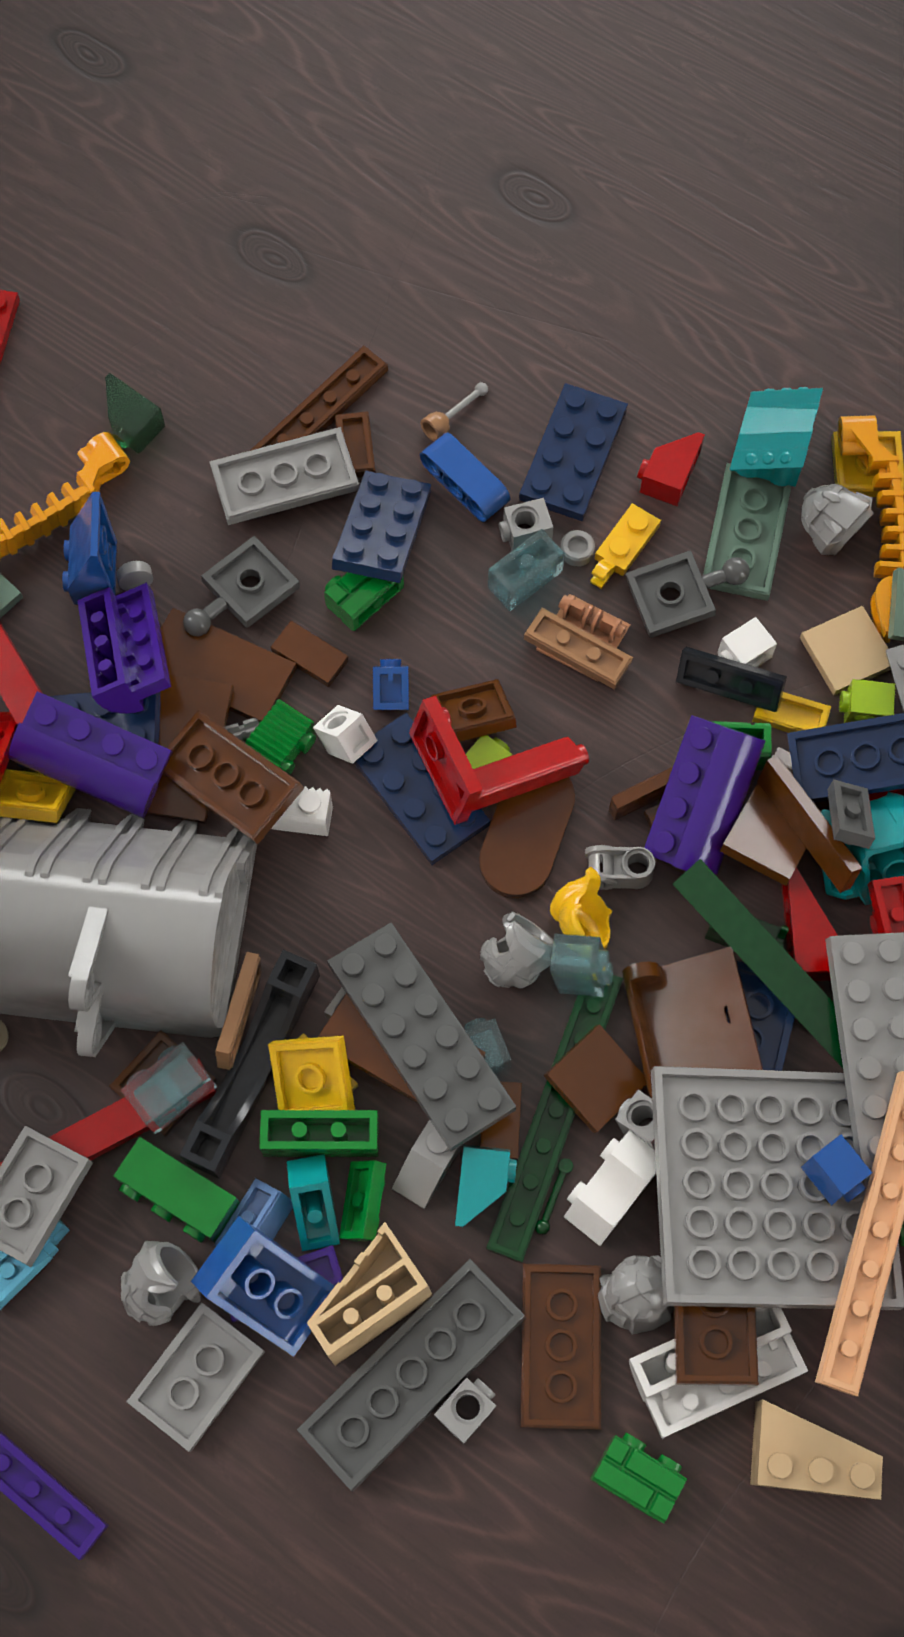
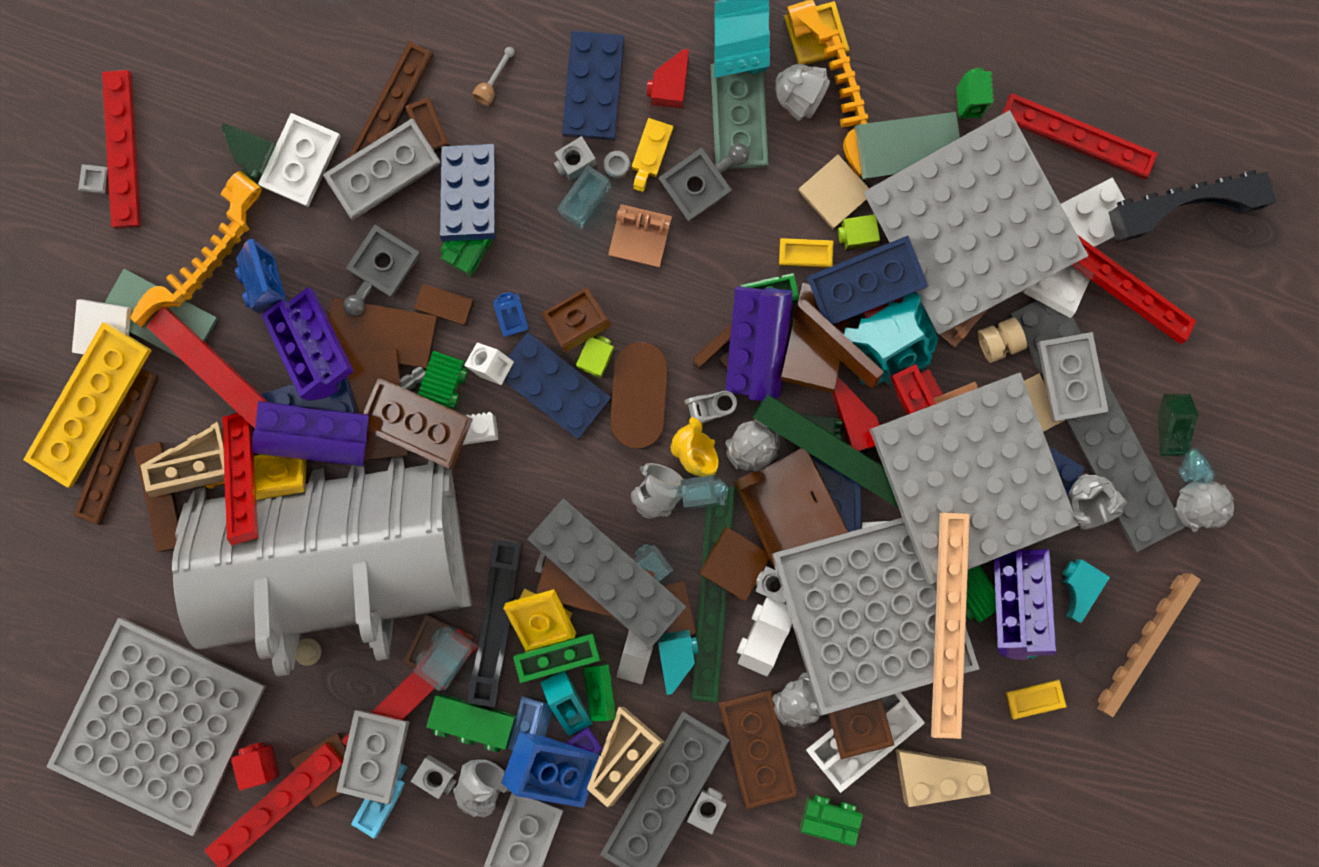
camera: 10 degrees left, 15 degrees up
(90, 1240) = (422, 777): none -> light grey brick
(134, 574) = (296, 281): light grey tile -> none
(185, 441) = (299, 160): none -> white plate
(238, 1011) = (475, 588): medium nougat tile -> none
(465, 477) = (517, 131): blue beam -> none
(472, 789) = (592, 384): red piece -> none
(564, 1167) = (729, 629): dark green hinge -> none
(578, 648) = (638, 247): medium nougat tile -> none
(662, 929) = (753, 446): none -> light grey helmet
(731, 679) = (755, 242): black tile -> none
(748, 644) = (761, 213): white brick -> none
(837, 1171) = (914, 592): blue brick -> none
(851, 814) = (866, 332): dark grey plate -> none

